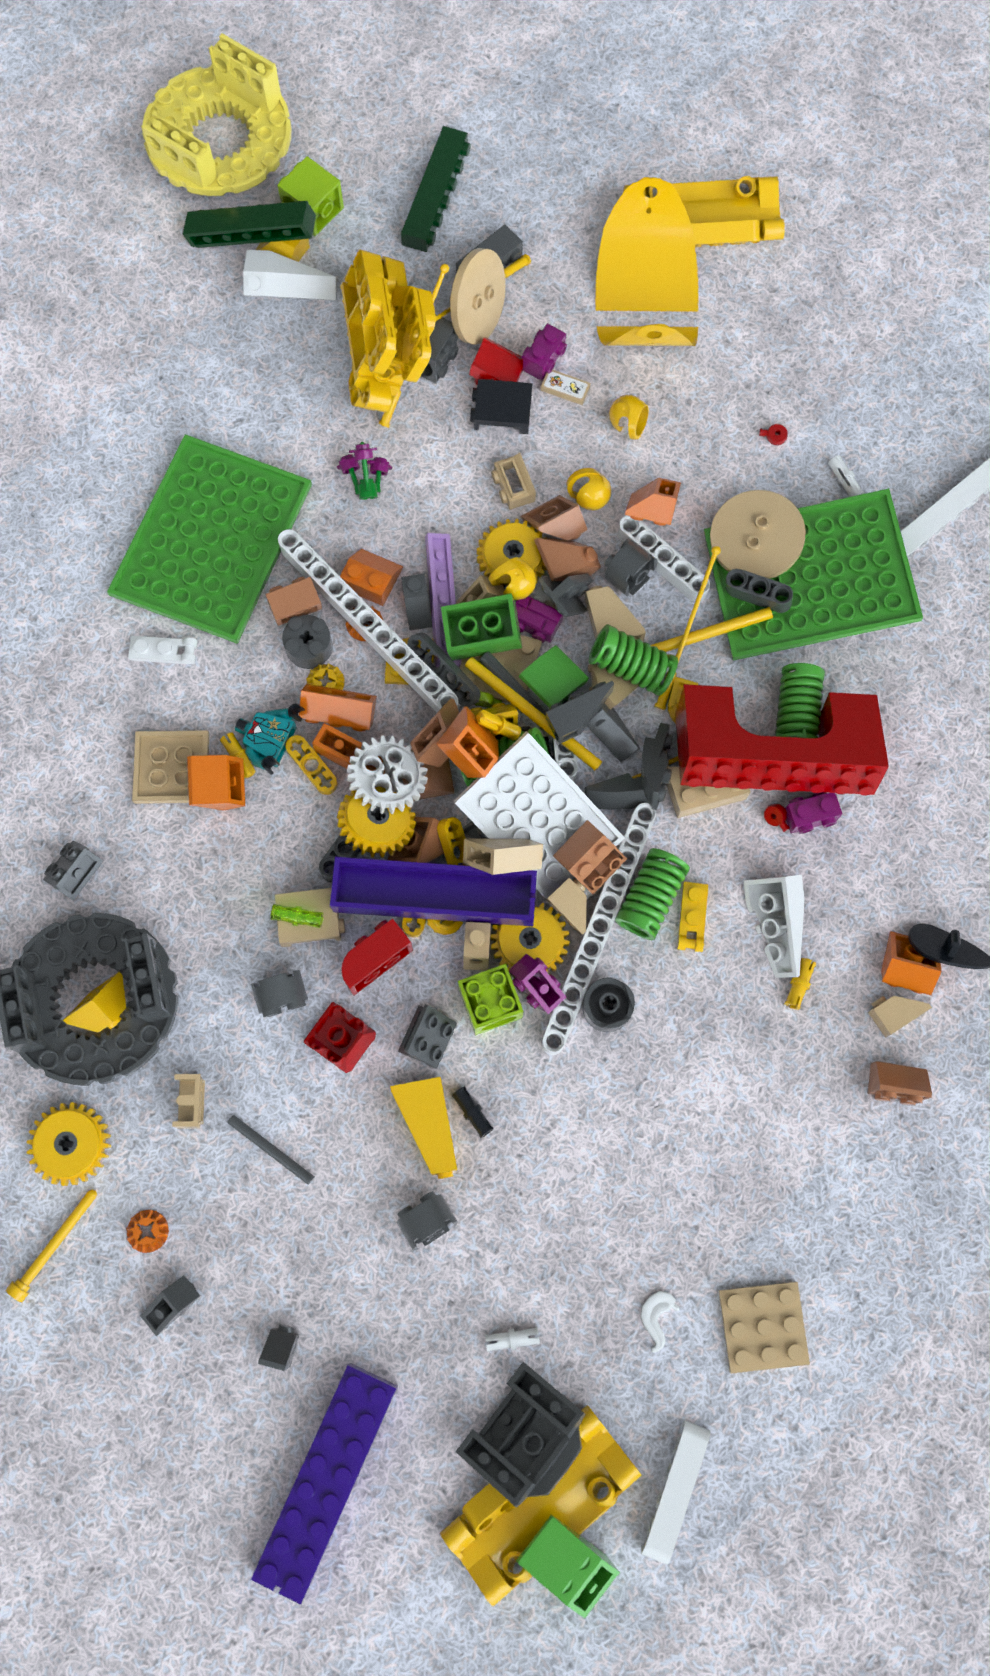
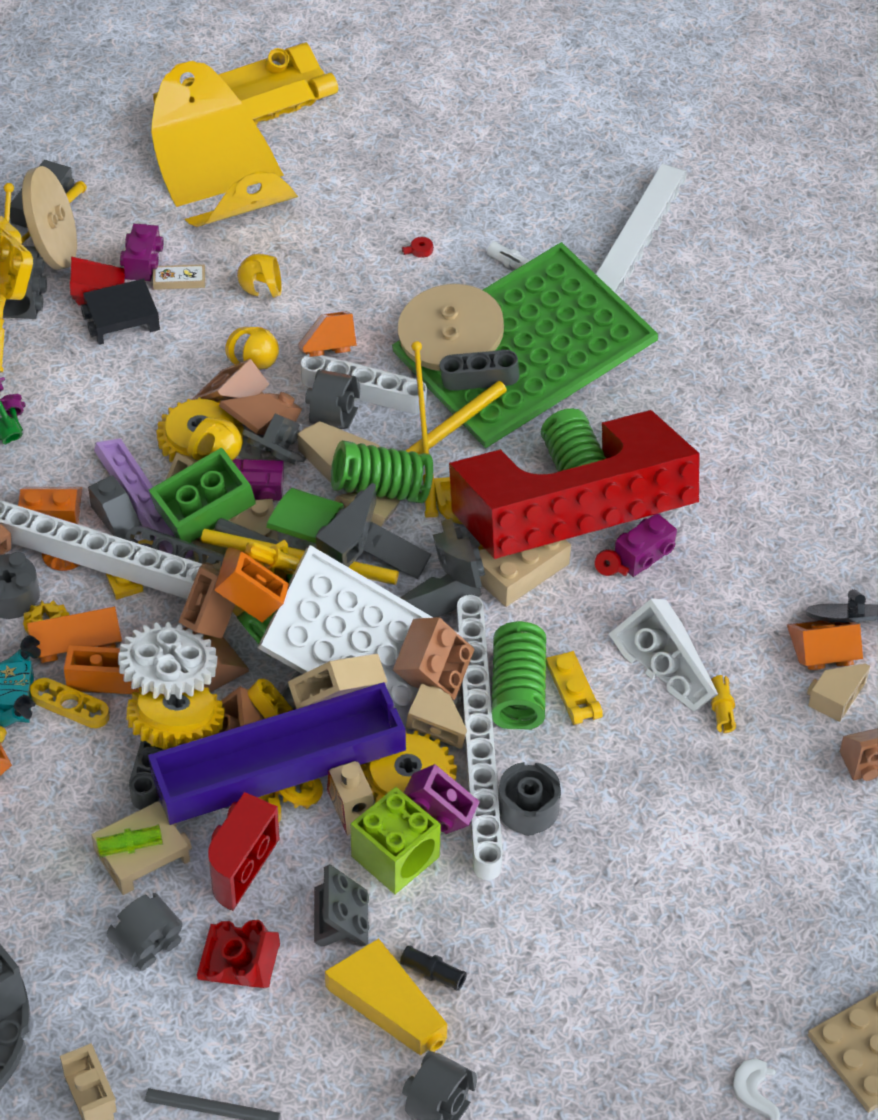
camera: 25 degrees left, 25 degrees down
(520, 498) = (185, 372): tan window -> none

